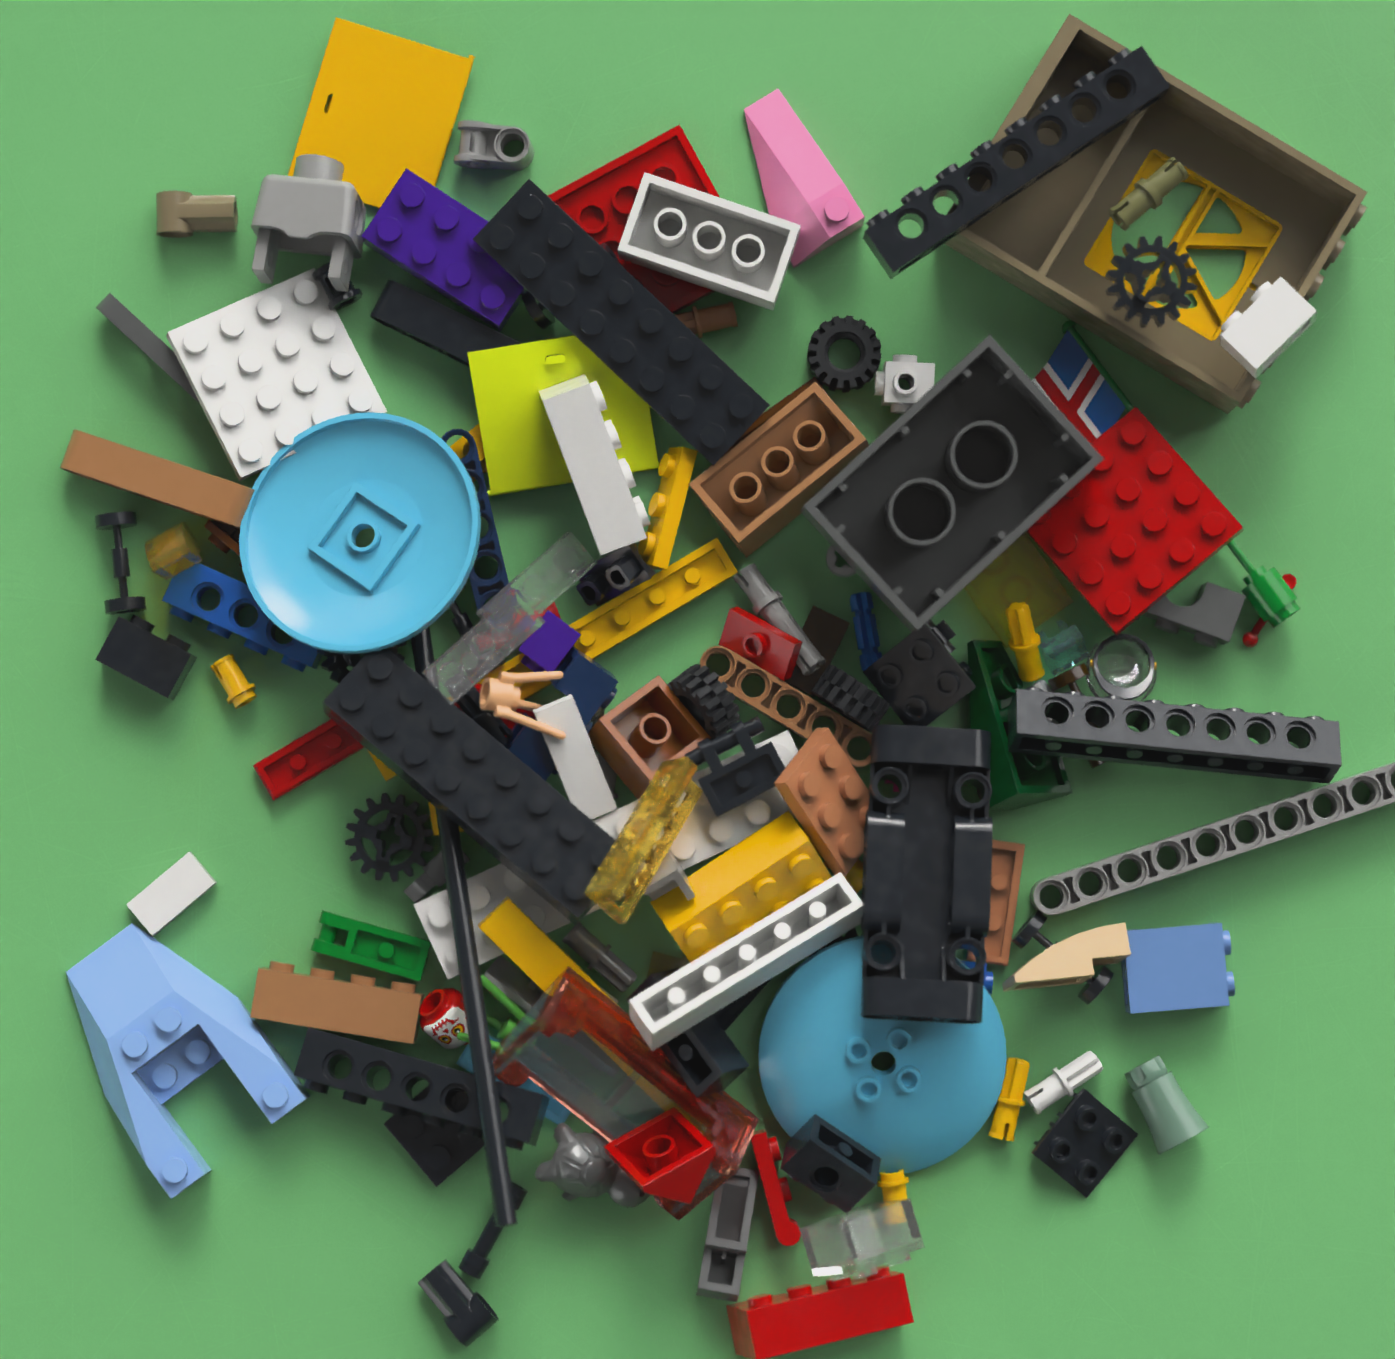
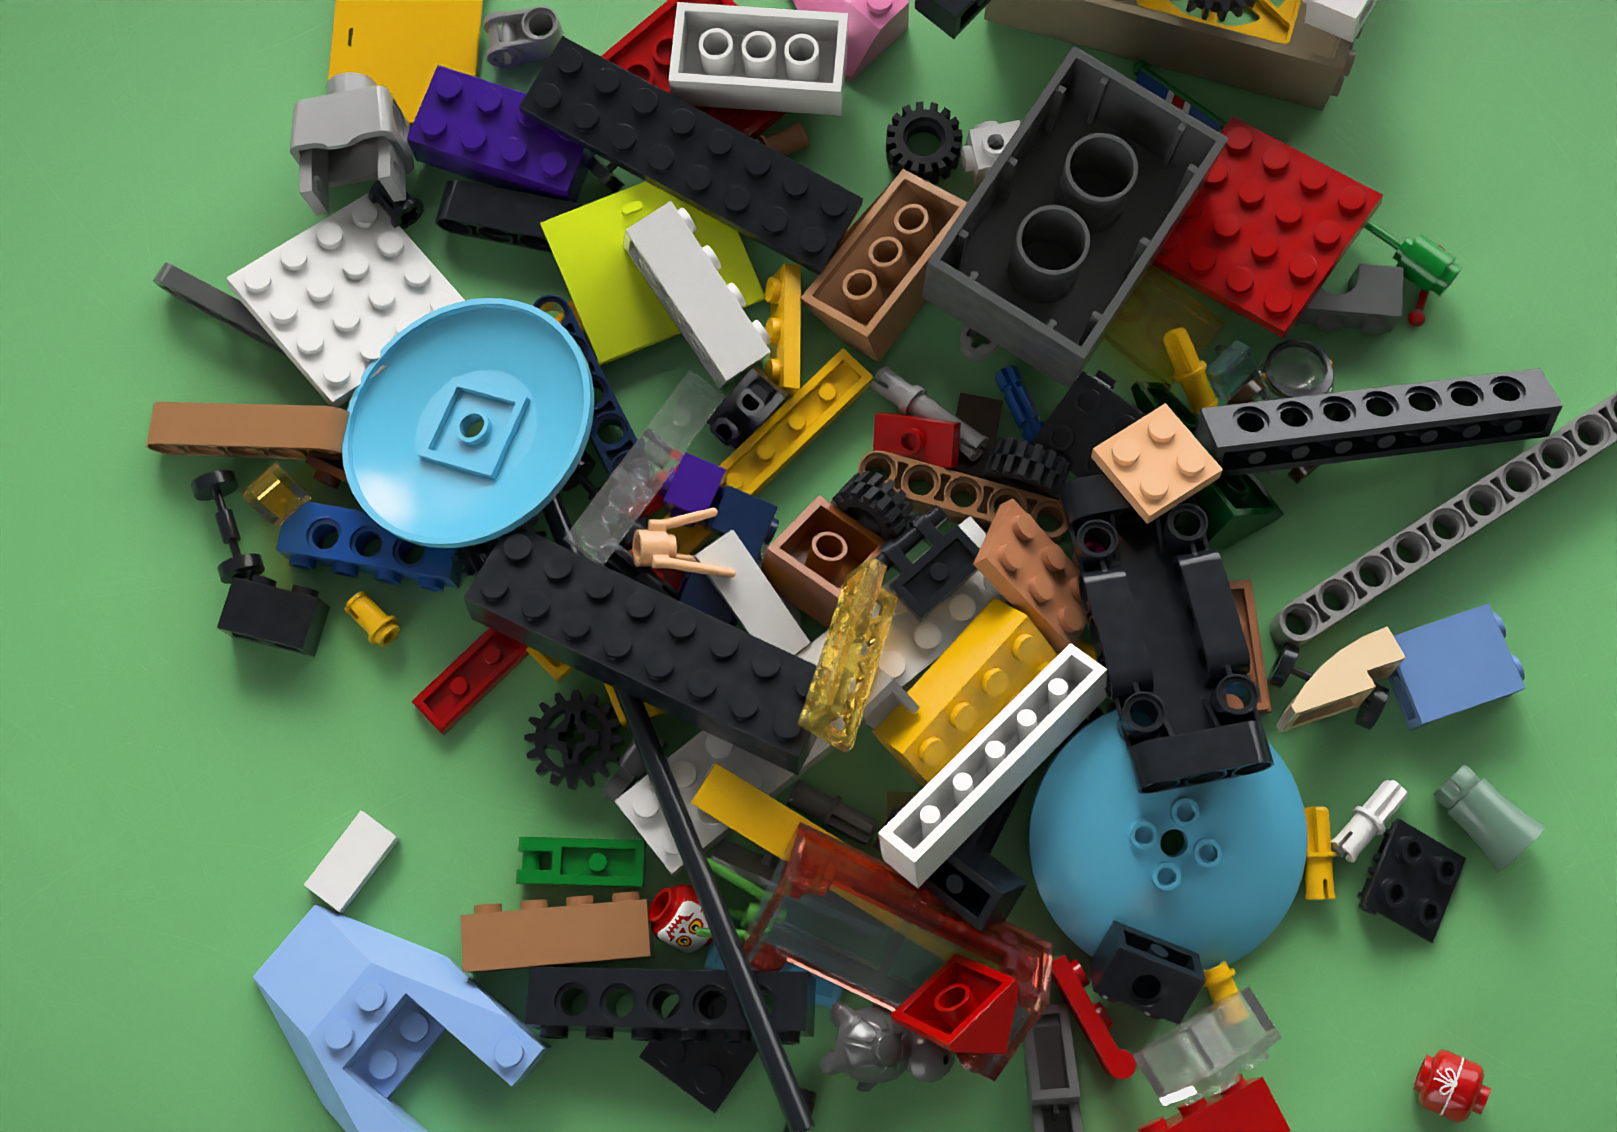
camera: 10 degrees left, 10 degrees down
(182, 213) = (227, 172): dark tan piece -> none
(961, 730) = (1156, 463): none -> light nougat plate
(1061, 1319) = (1451, 1086): none -> red head

